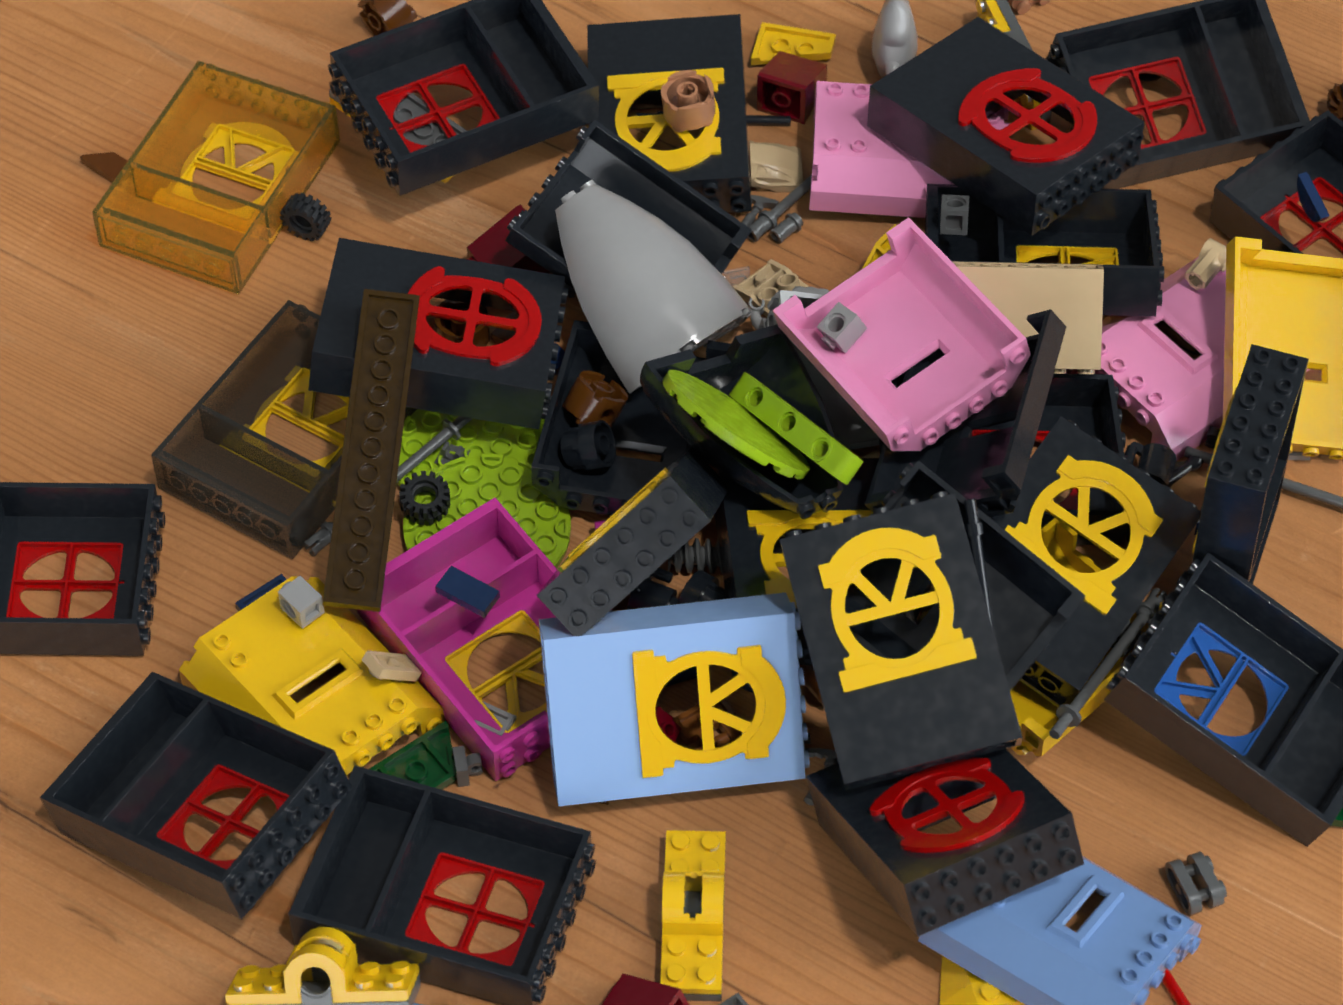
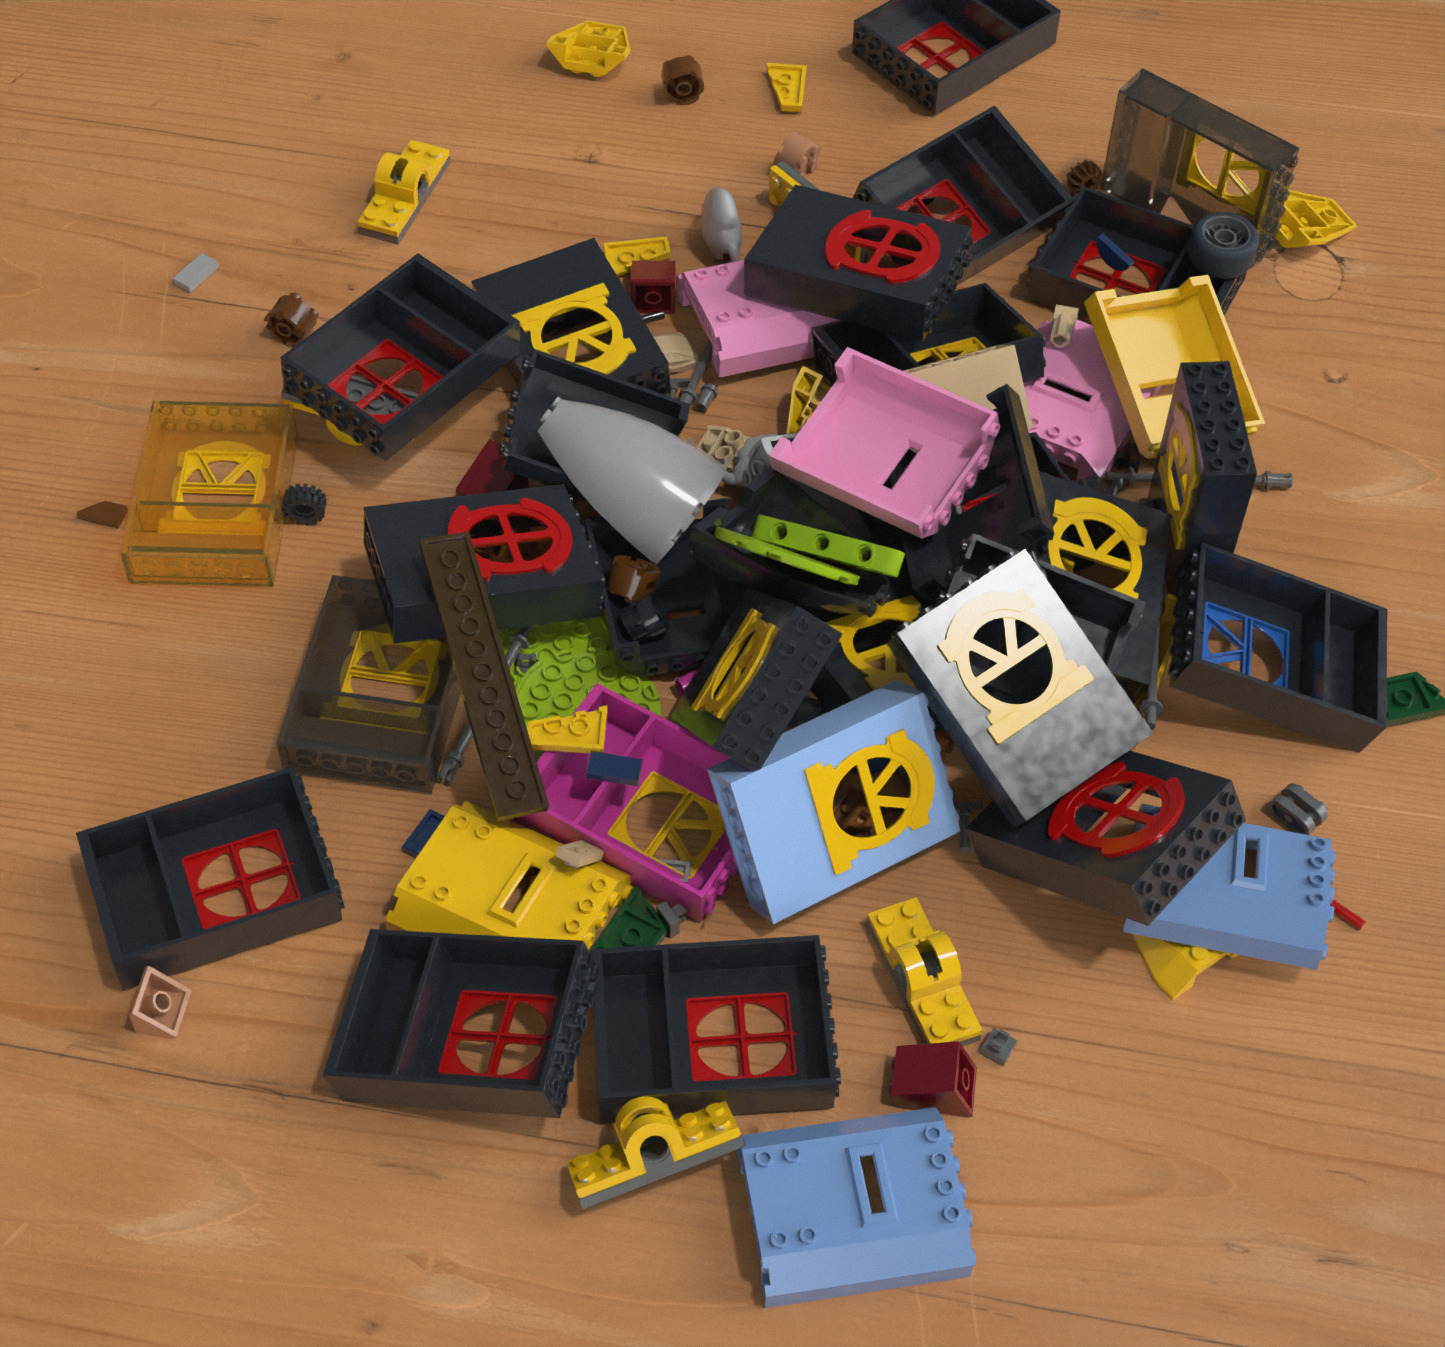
camera: 25 degrees left, 0 degrees up
(301, 601) = (476, 824): light grey brick -> none
(424, 484) = (536, 694): black tyre -> none
(438, 540) = (573, 733): none -> yellow wing
(688, 100) = (593, 315): nougat brick -> none
(841, 328) = (822, 445): light grey brick -> none
(954, 215) = (856, 338): dark grey brick -> none

